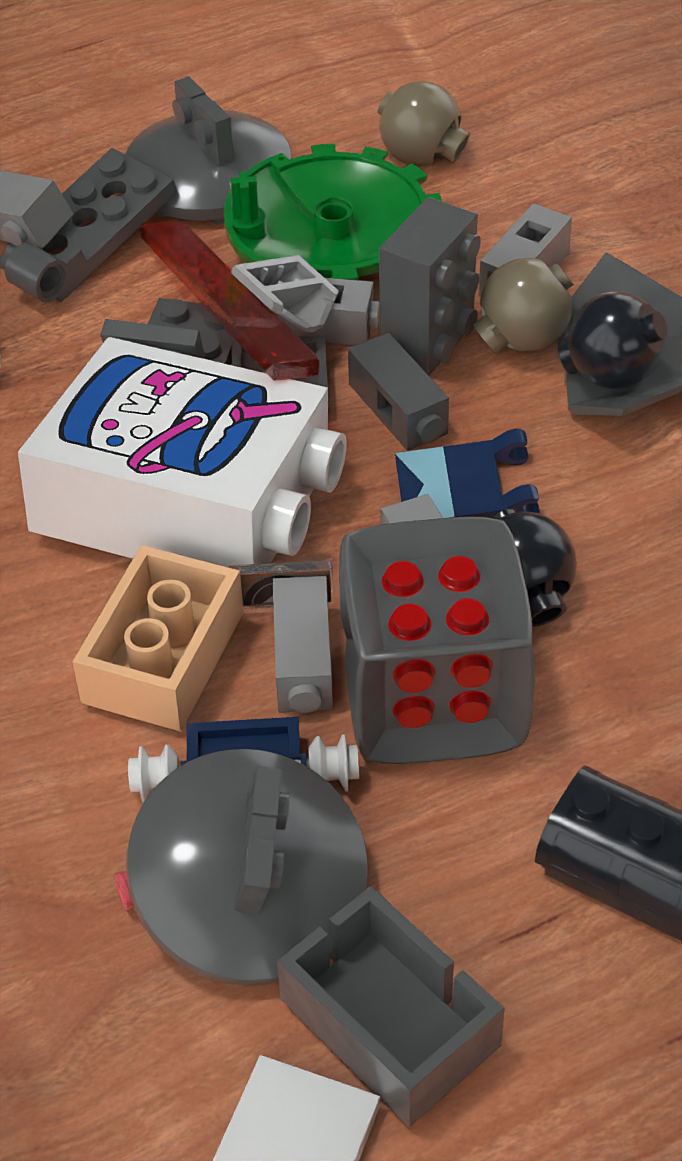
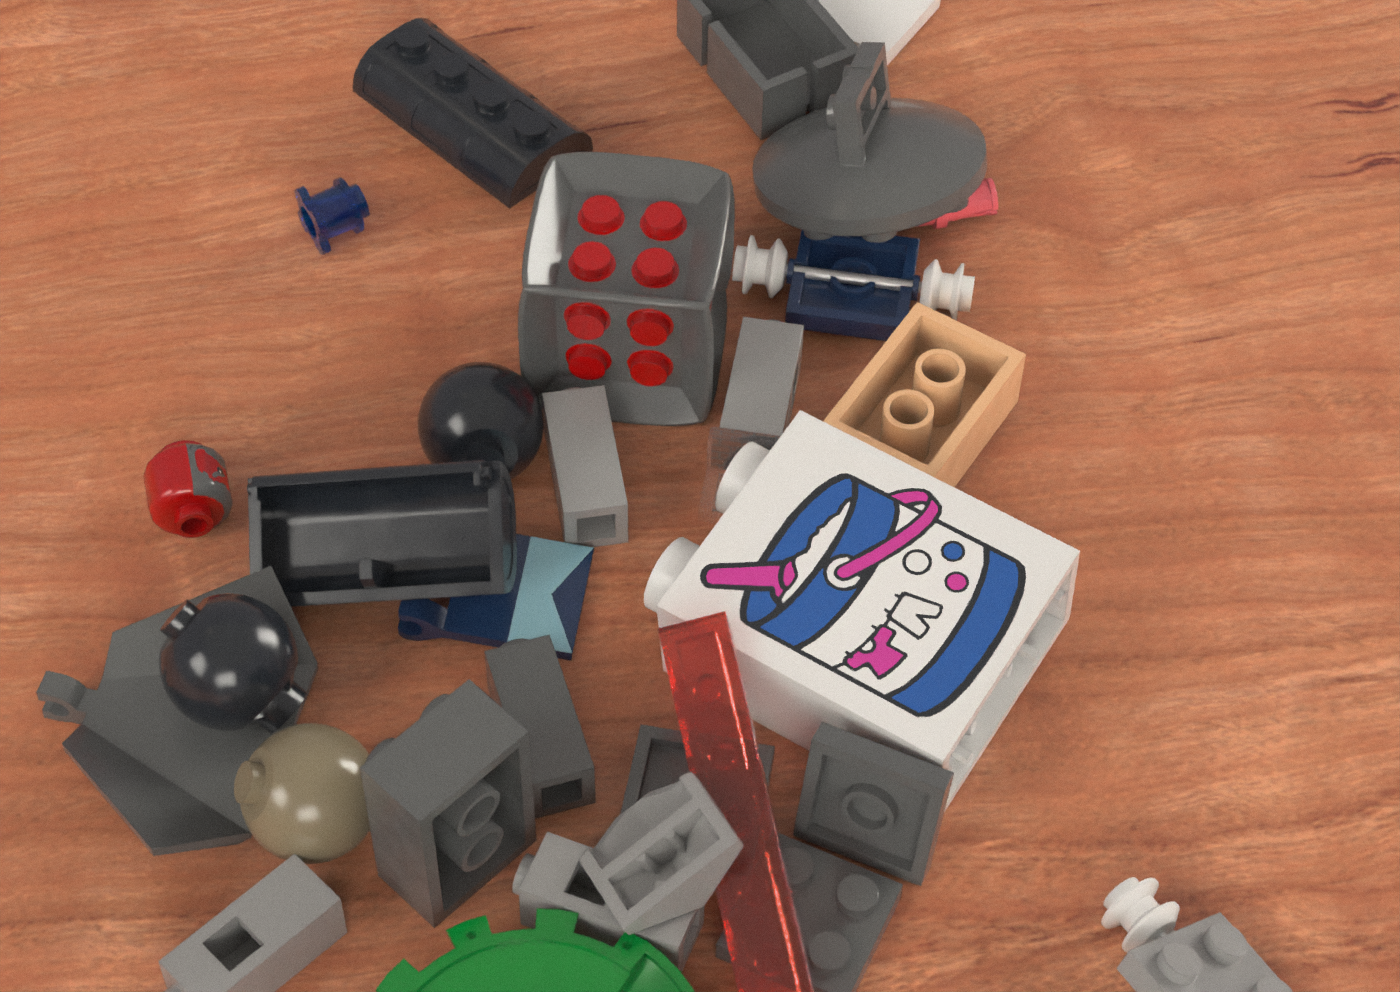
camera: 170 degrees left, 5 degrees up
(557, 450) = (385, 532): none -> black container

